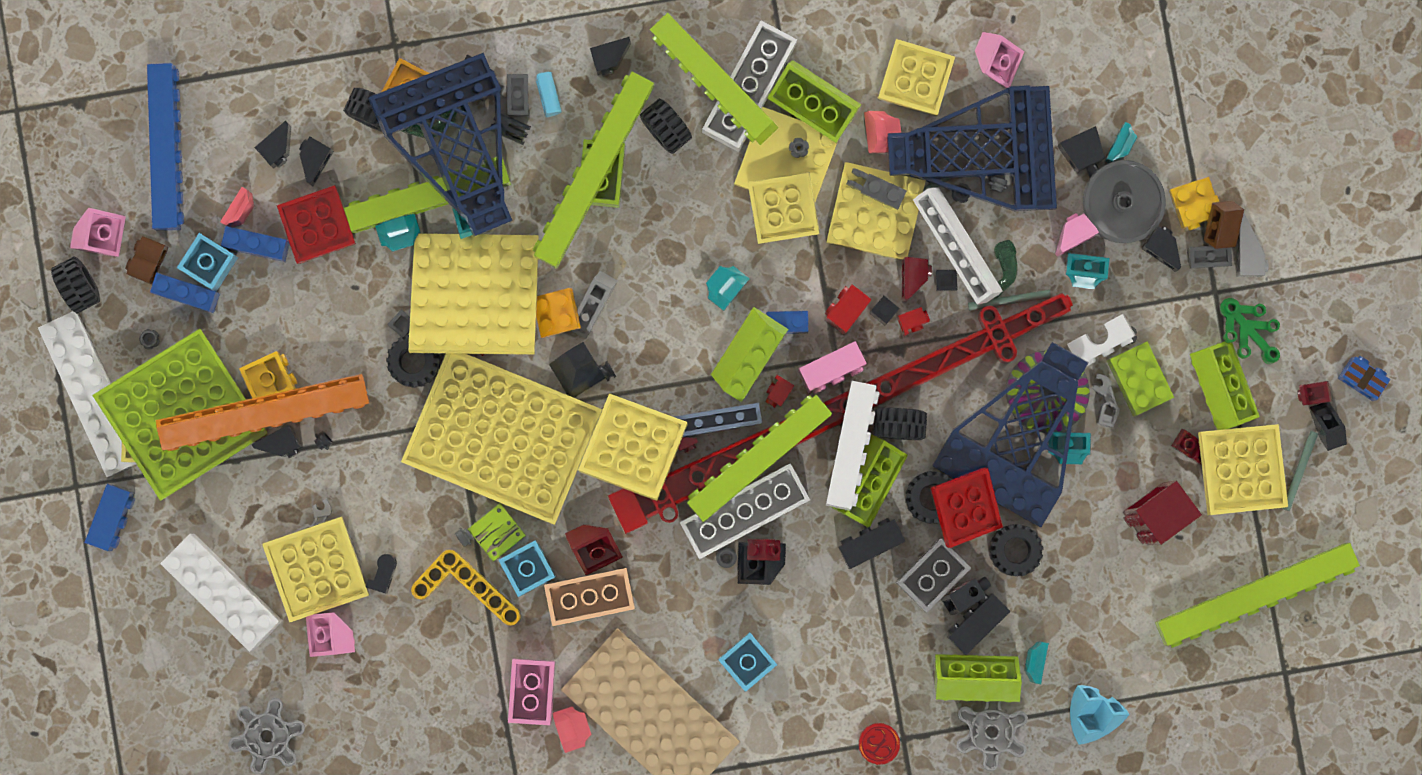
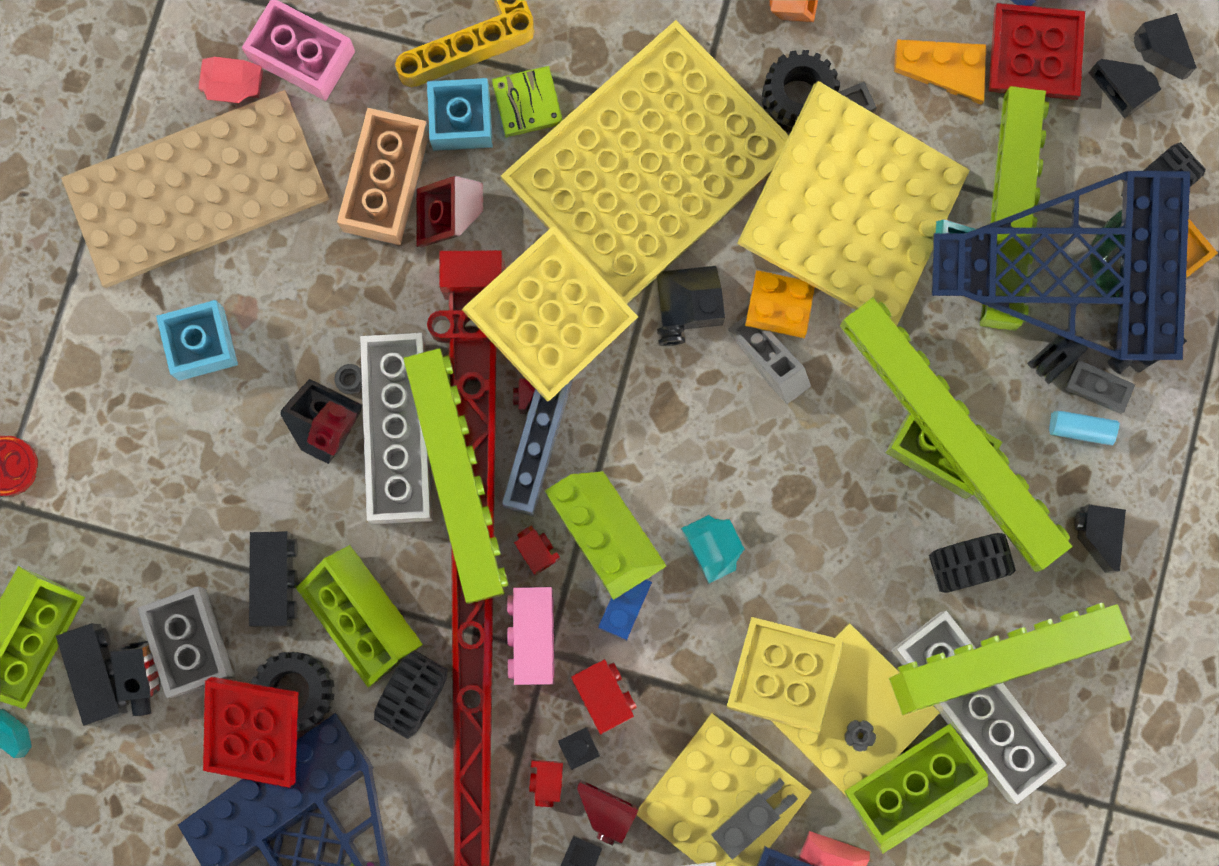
camera: 115 degrees right, 5 degrees down
(351, 279) = (944, 64): none -> light orange wing
(398, 232) = (980, 151): teal slope -> none
(464, 536) = (540, 56): dark grey plate -> none
(851, 446) = (410, 609): white brick -> none
(1034, 550) = (137, 774): black tyre -> none

